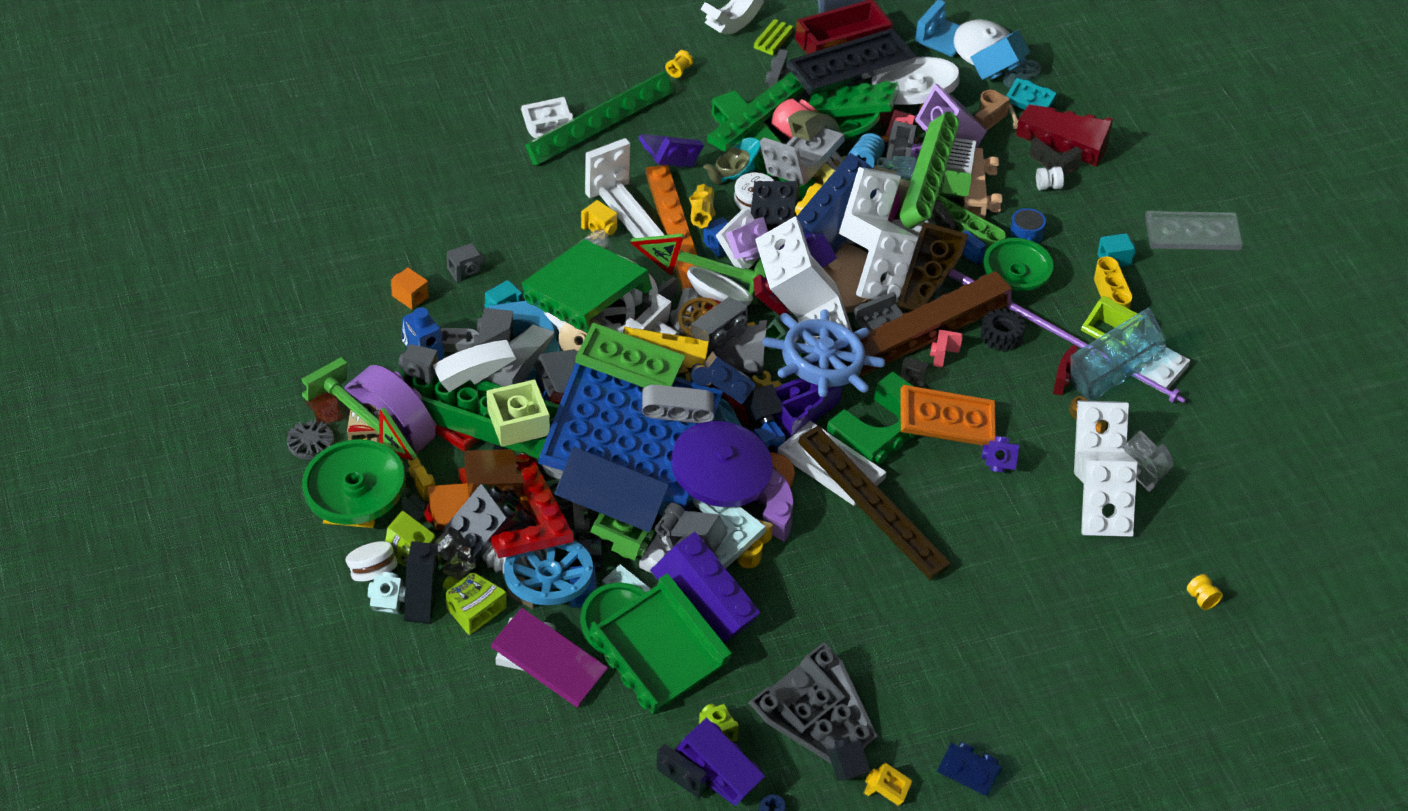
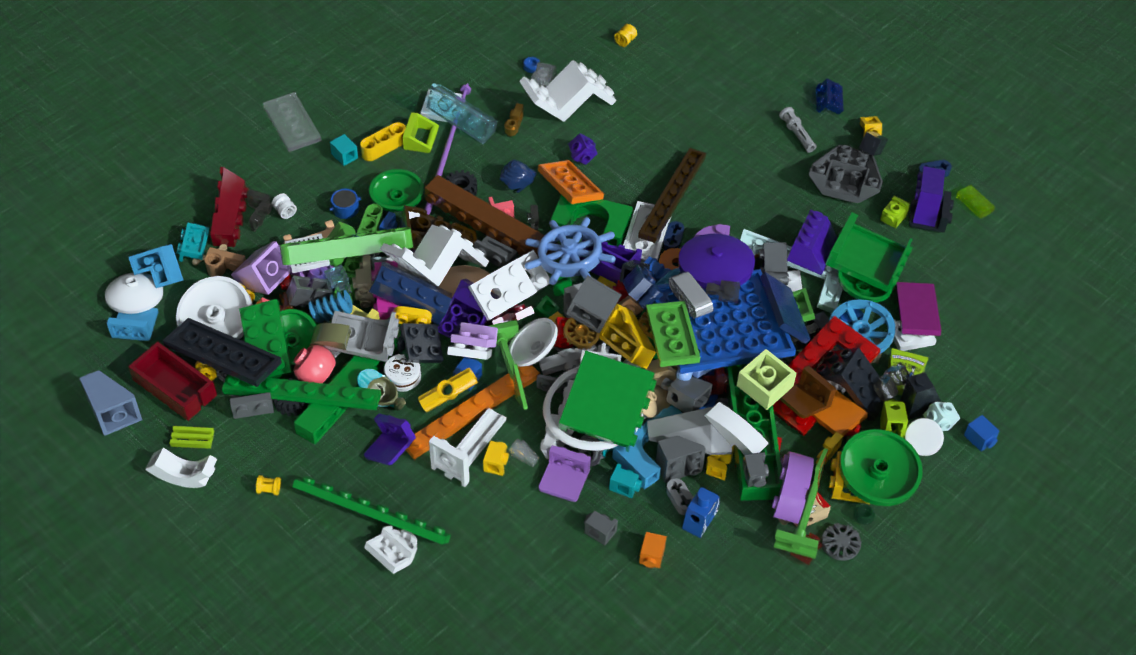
camera: 115 degrees left, 5 degrees up
(340, 625) = (982, 433): none -> blue brick
(537, 256) = (565, 473): none -> medium lavender bracket
(663, 439) = (727, 291): none -> clear smoke plate
(813, 489) = (677, 238): none -> dark blue beam
(939, 699) = (794, 124): none -> light grey pin
(989, 378) = (517, 175): none -> dark blue hair
(1064, 371) = (475, 144): dark red slope -> none
(1195, 479) = (530, 64): none -> blue tile

